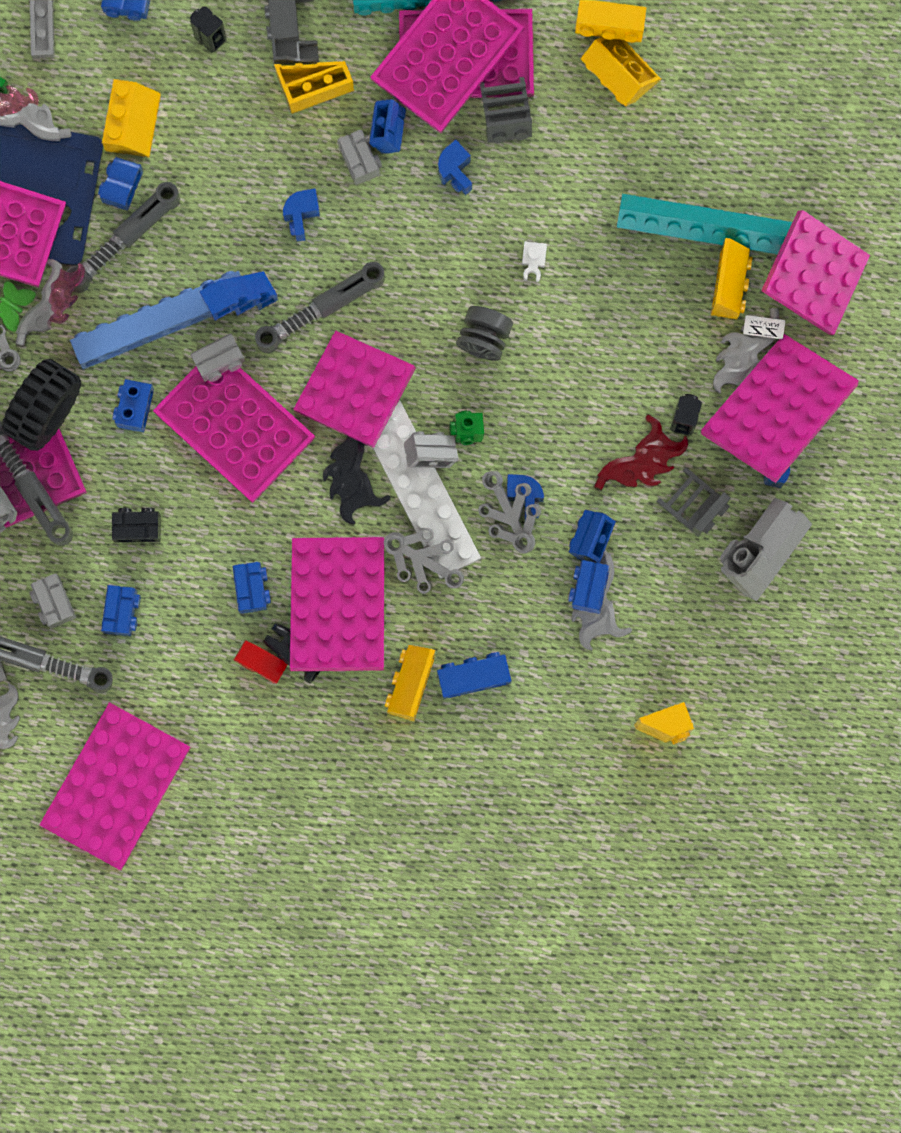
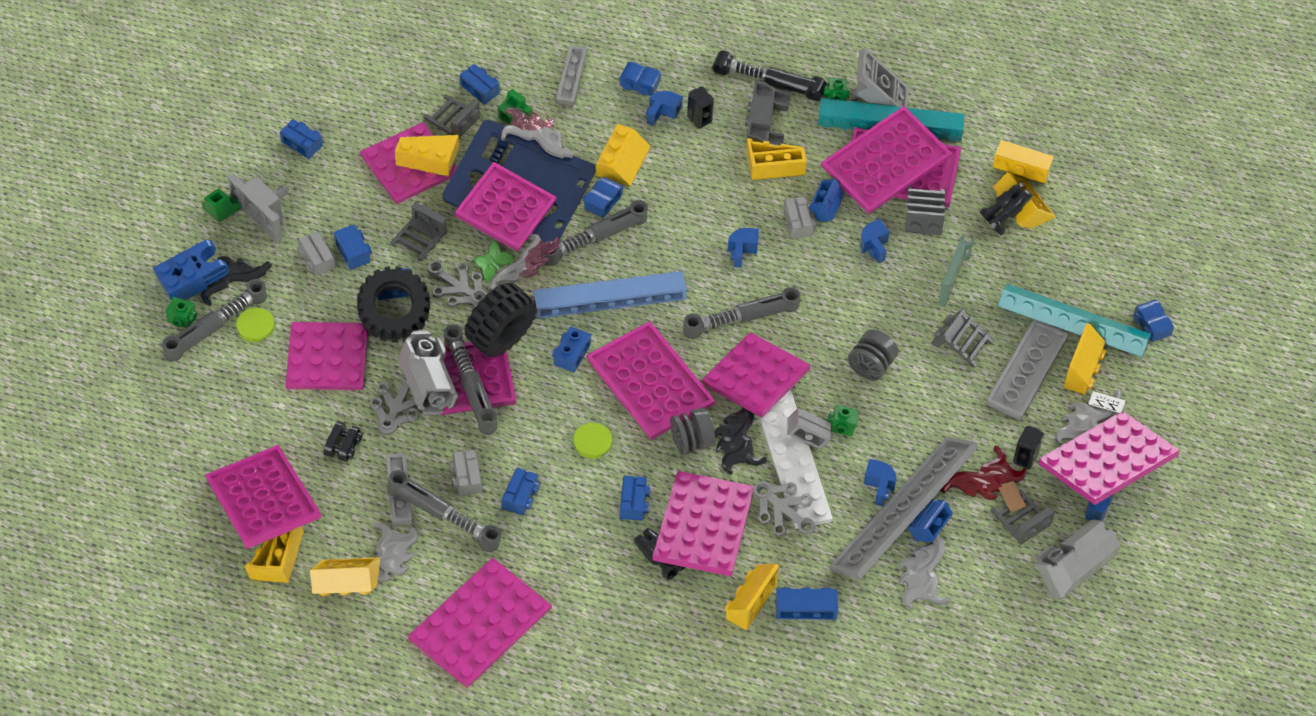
camera: 10 degrees right, 25 degrees down
(136, 526) = (550, 434): black brick -> none
(162, 29) = (663, 103): none -> blue brick
(186, 520) = (592, 440): none -> lime tile
(218, 358) = (650, 326): light grey brick -> none
(238, 294) = (679, 282): blue brick -> none
(260, 661) = (628, 553): red slope -> none
(301, 485) = (692, 430): none -> dark grey wheel
(511, 514) = (866, 487): light grey plant -> none
(533, 257) = (924, 316): white plate -> none
(559, 526) = (903, 507): none -> light grey plate
(562, 162) = (954, 269): none -> sand green tile
(571, 273) = (954, 329): none -> dark grey plate
(590, 586) = (921, 555): blue brick -> none
(607, 84) = (1011, 202): none -> black piece
(665, 303) = (1027, 369): none -> light grey plate
(667, 724) = (963, 666): yellow slope -> none
(677, 479) = (1012, 496): none -> medium nougat sticker
(797, 196) = (1153, 320): none -> blue brick
(815, 272) = (1157, 369): dark pink plate -> none

